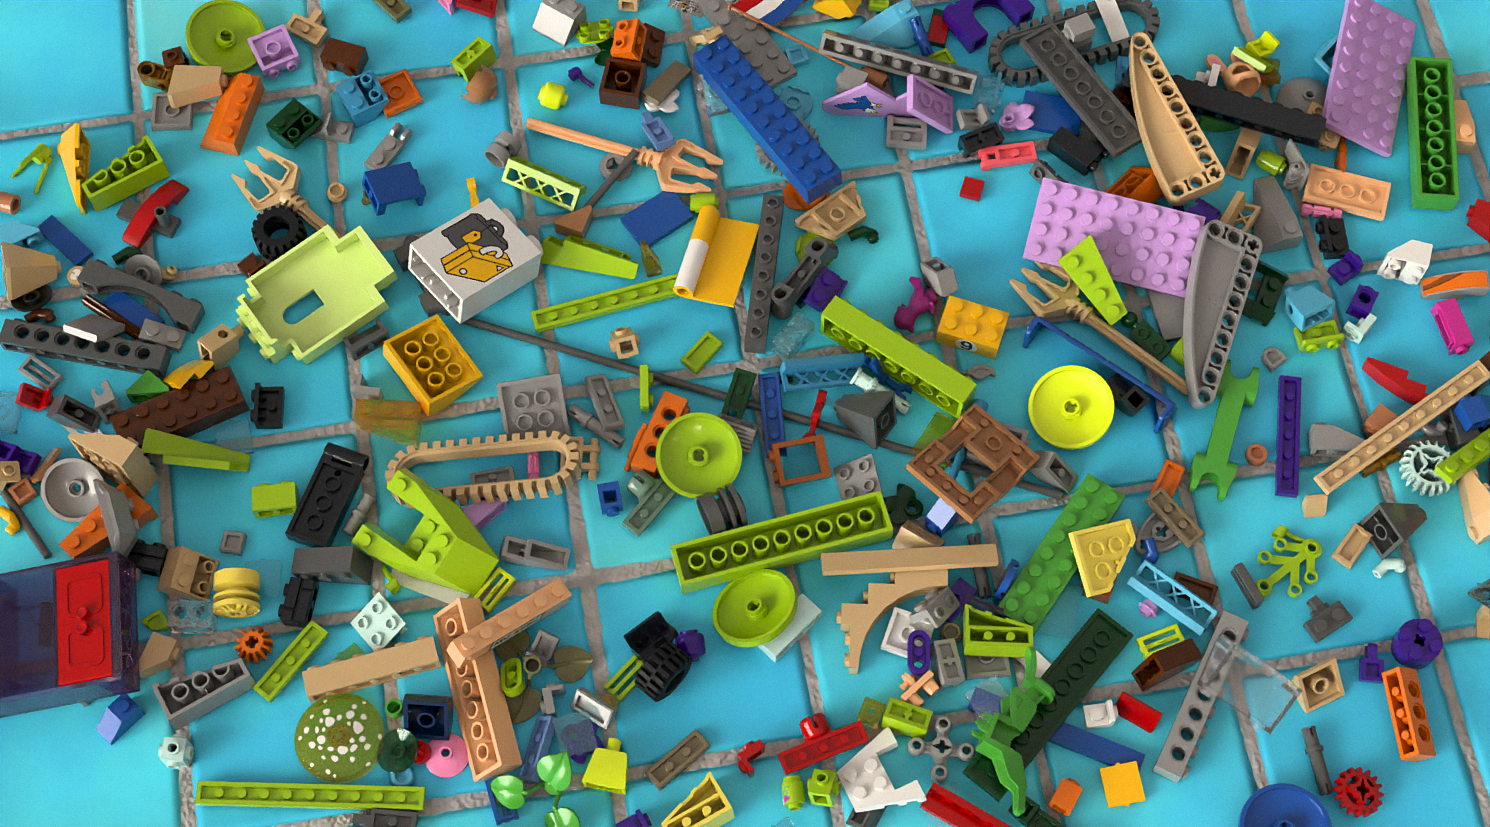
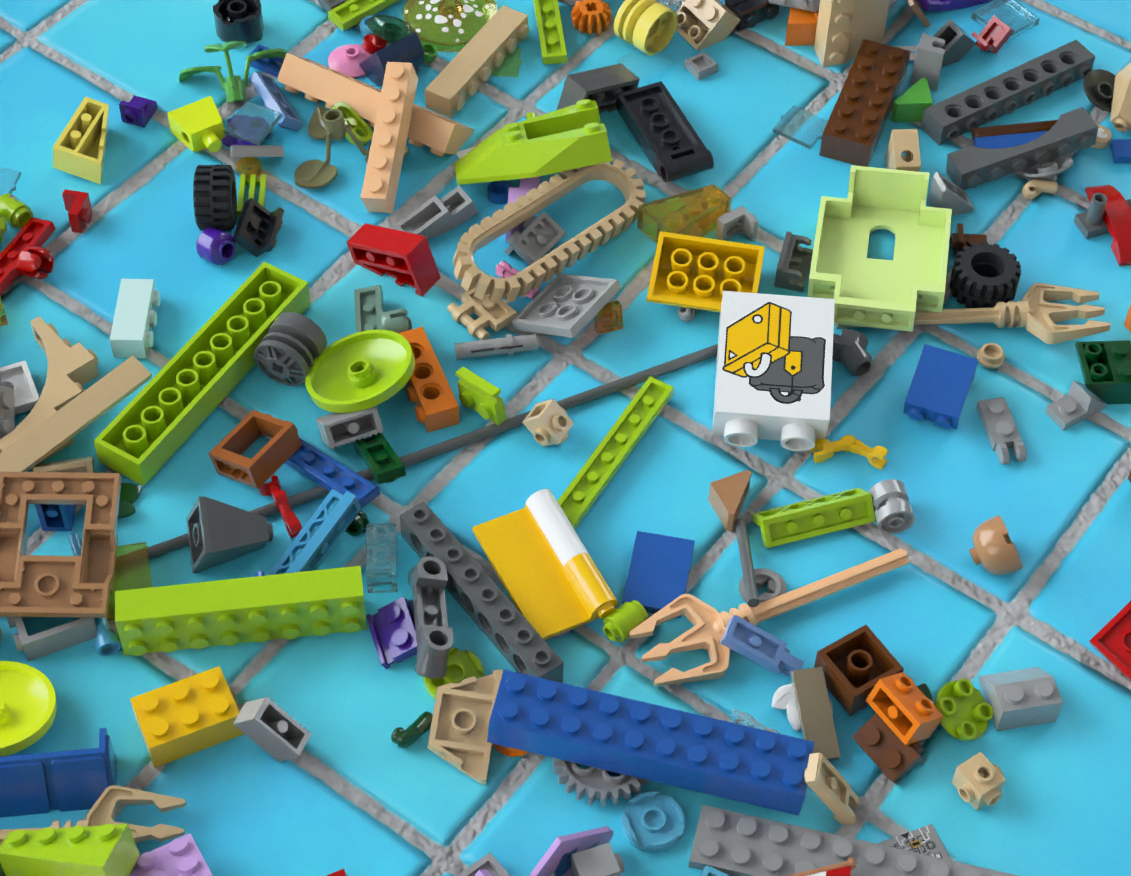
camera: 135 degrees right, 15 degrees down
(40, 313) = (1076, 93): reddish brown arm -> none
(53, 382) = (1008, 59): light grey tile -> none
(94, 327) = (1019, 98): light grey tile -> none
(125, 254) = (1086, 179): dark green arm -> none
(156, 332) = (971, 134): light grey plate -> none
(182, 374) = (896, 114): yellow slope -> none
(193, 453) = (809, 75): lime wedge -> none
(224, 305) = (948, 195): none -> light grey slope
(268, 407) = (804, 155): black bracket -> none
(275, 499) = (704, 100): lime brick -> none
(299, 602) = (589, 54): black brick -> none
(358, 515) = (623, 144): light grey pin -> none
(362, 98) = (1089, 439): dark azure slope -> none
(378, 622) = (500, 88): light aqua hinge -> none
(400, 92) = (1068, 483): orange plate -> none
(472, 58) = (1042, 573): lime hinge -> none
(500, 595) = (444, 190): neon yellow tile -> none
(544, 646) = (348, 159): light grey bracket -> none
(551, 690) = (301, 134): light grey bracket -> none
(552, 95) = (915, 602): neon yellow head -> none
(576, 73) = (924, 654): dark purple hand -> none
(587, 256) = (681, 483): lime wedge -> none
(591, 540) = (396, 254): none -> red wedge
(604, 402) = (510, 366): light grey tile -> none
(608, 492) = (415, 298): blue brick -> none
(637, 440) = (440, 356): orange hand -> none
(650, 260) = (611, 516): clear yellow slope -> none
(677, 759) = (146, 175): dark tan tile -> none
(702, 352) = (466, 485): lime tile -> none
(755, 608) = (173, 295): lime dish -> none
(857, 477) = (178, 484): light grey hinge -> none
(871, 385) = (246, 568): light aqua pin -> none
(920, 303) = (276, 673): magenta animal -> none
(980, 372) = (140, 684): light grey piece -> none

